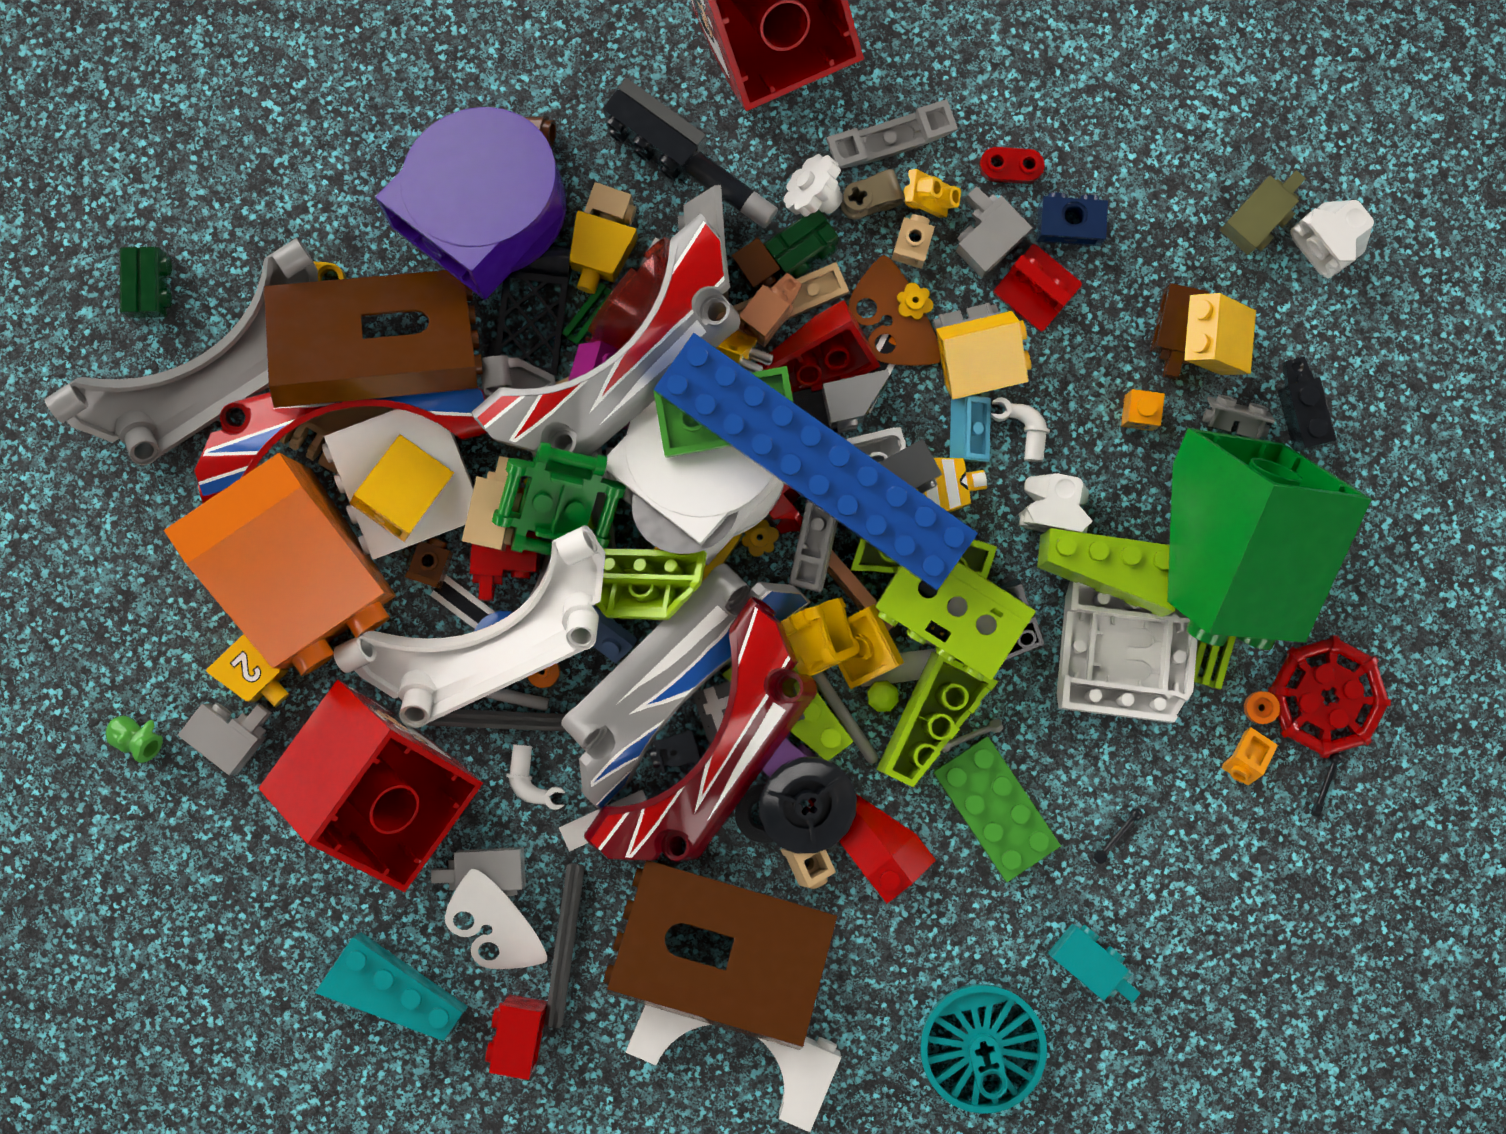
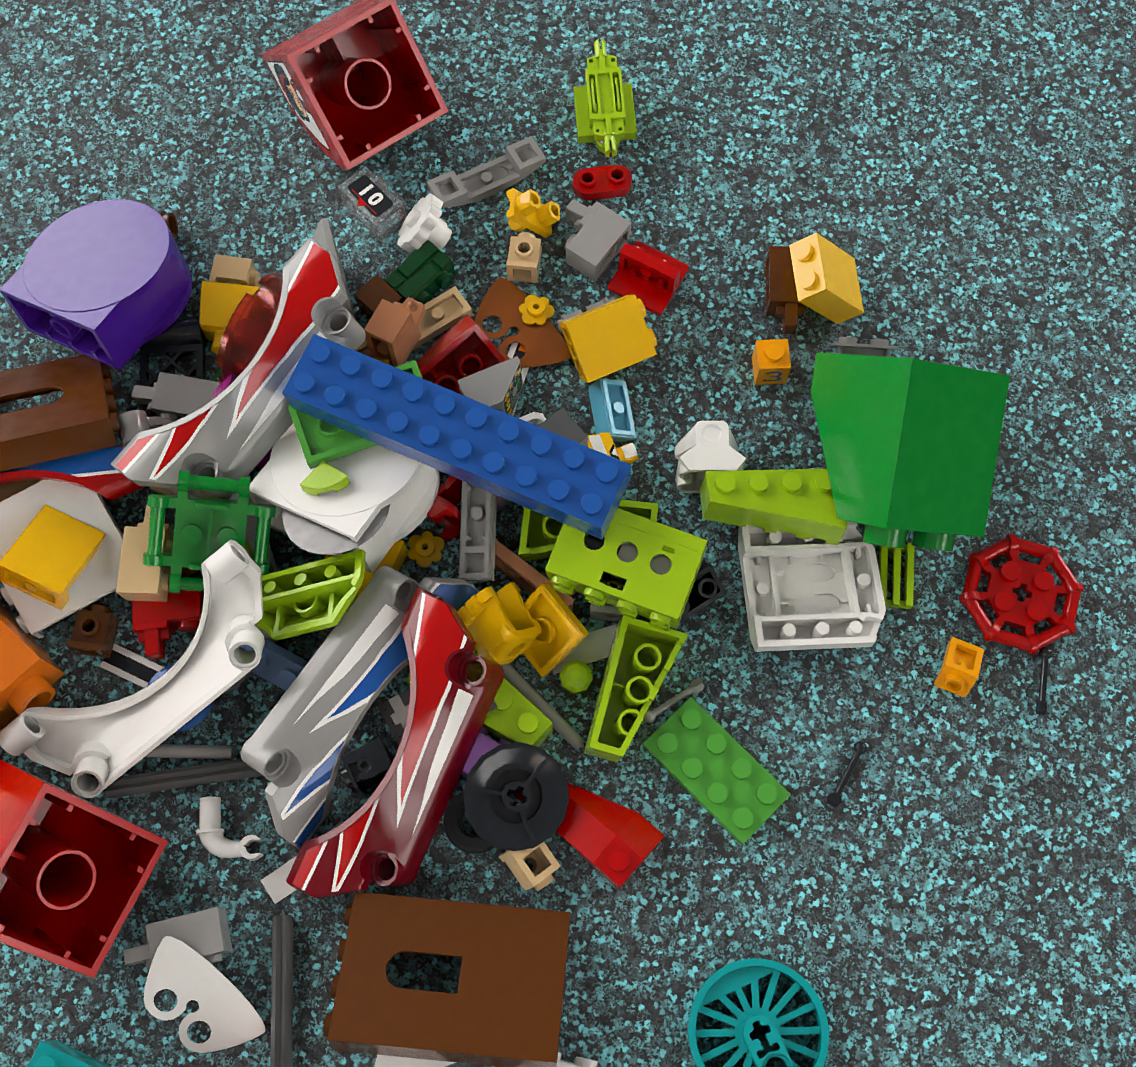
camera: 10 degrees left, 15 degrees down
(542, 339) = (175, 395): none -> light grey hinge
(546, 680) = (224, 719): orange tile -> none
(677, 148) = (284, 210): black piece -> none
(679, 475) = (324, 479): none -> lime tile
(766, 147) = (373, 203): none -> clear brick
(877, 194) = (480, 223): dark tan piece -> none
(1032, 77) = (605, 104): none -> lime piece
(1034, 426) = (672, 397): white piece -> none
(1055, 229) = (656, 226): dark blue brick -> none
(1092, 964) = (855, 914): teal hinge -> none
(1262, 212) = (837, 179): olive hinge -> none
(1268, 710) = (958, 614): orange tile -> none
(1305, 407) = (922, 329): black hinge -> none
(1333, 235) = (907, 182): white piece -> none

